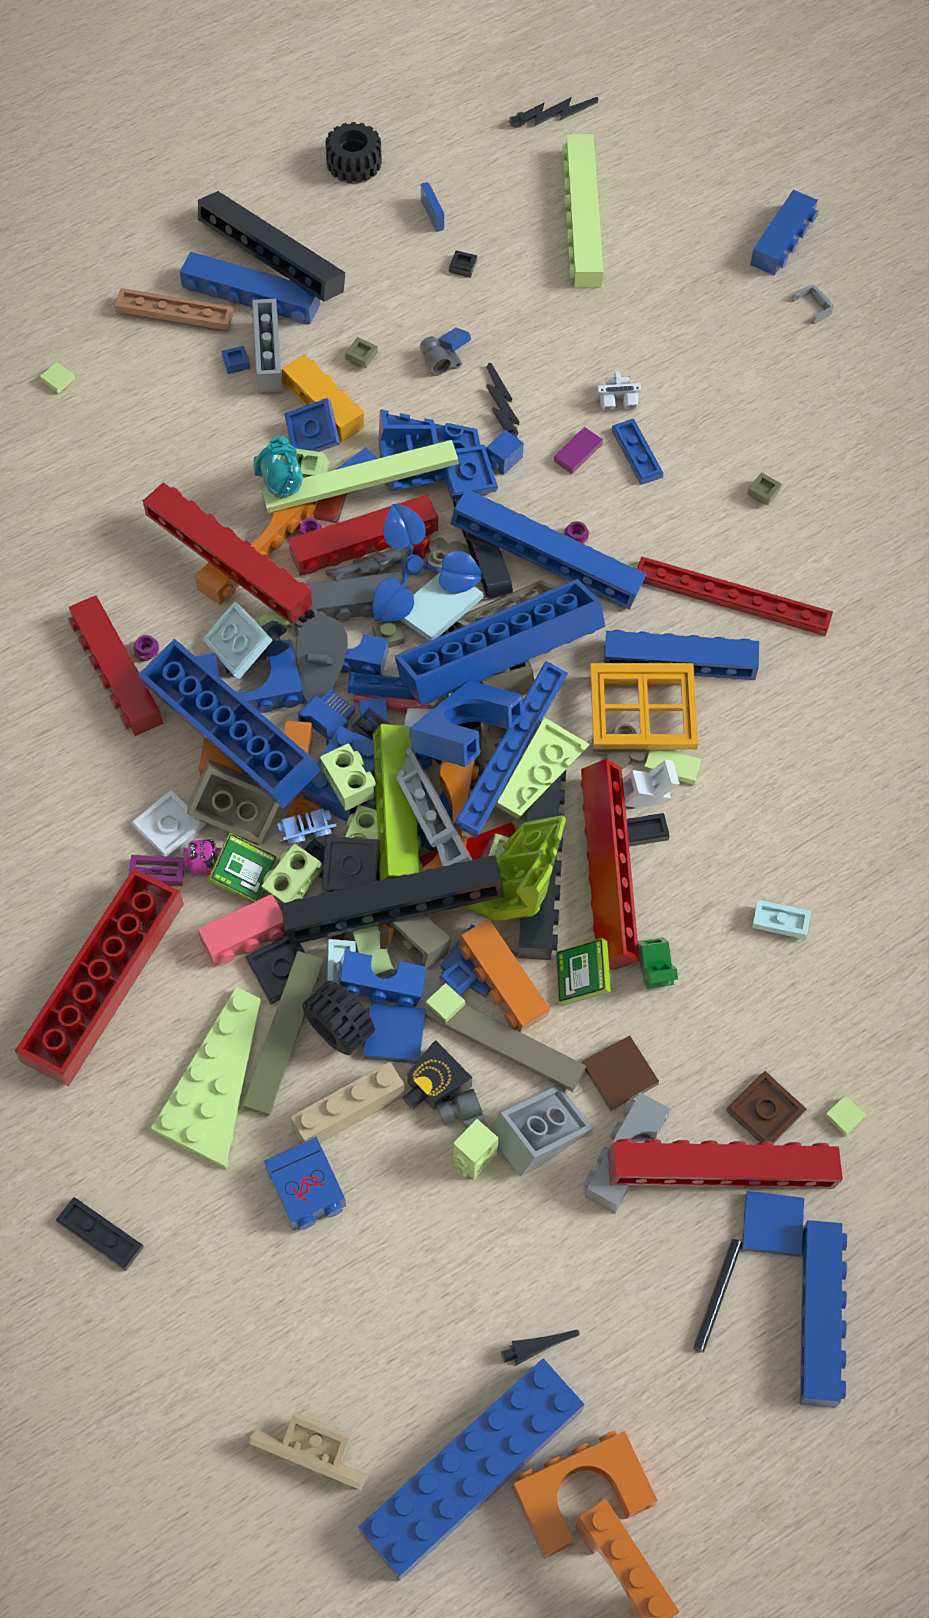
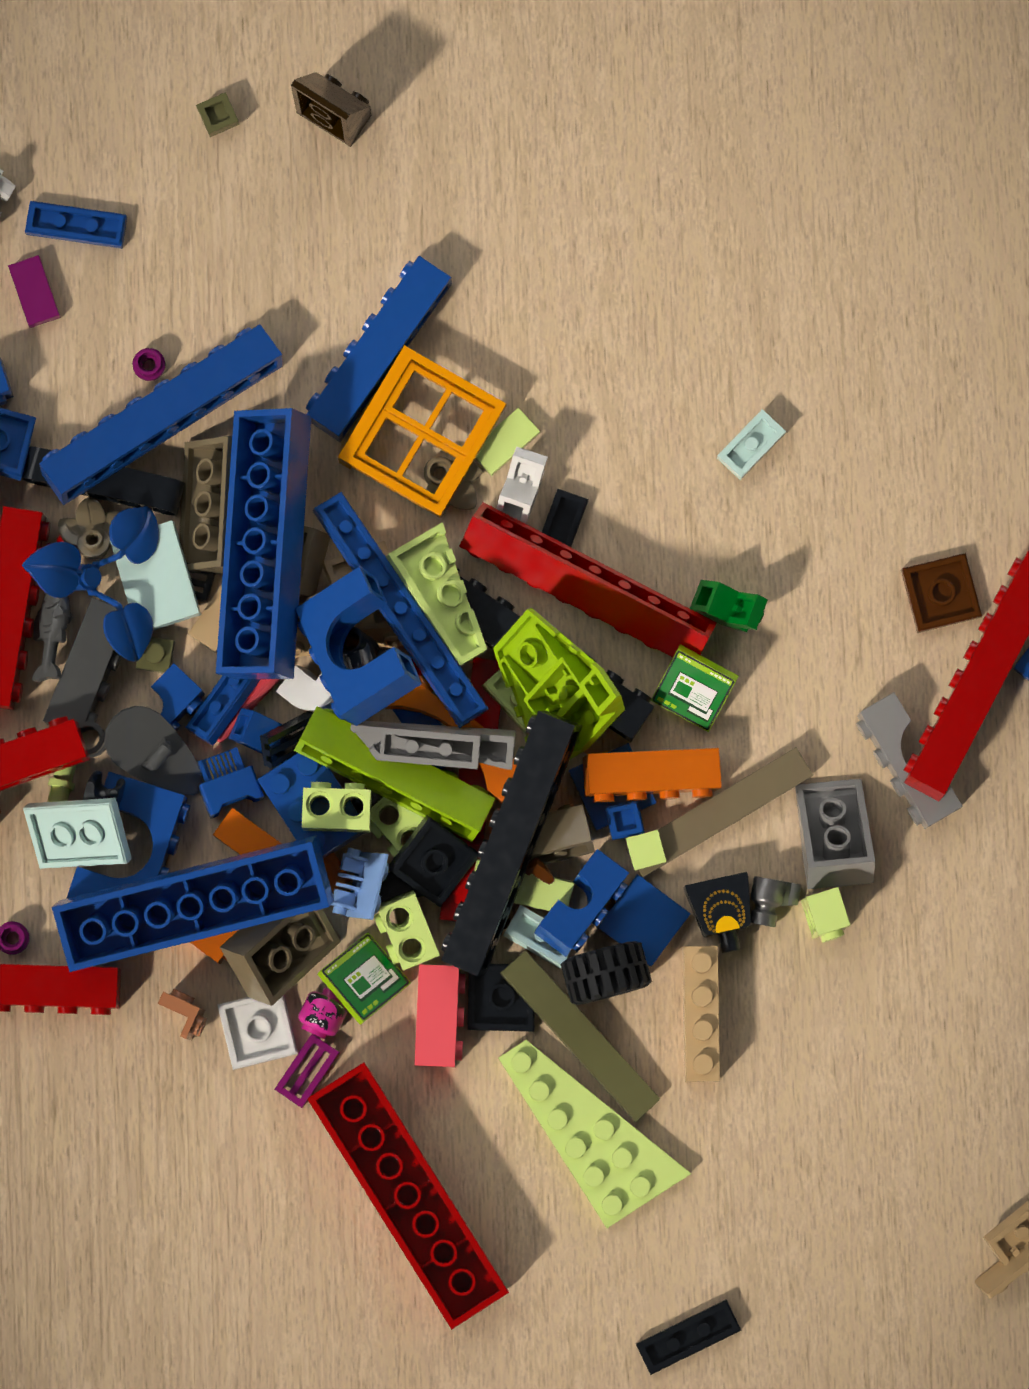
camera: 60 degrees left, 20 degrees up
(149, 772) = (183, 1005): none -> nougat bracket
(305, 1184) = (759, 1103): blue panel -> none
(620, 1073) = (819, 715): reddish brown tile -> none
(735, 596) = (334, 240): red tile -> none
(818, 540) = (330, 106): none -> dark brown slope
(845, 1115) = (993, 518): yellowish green tile -> none

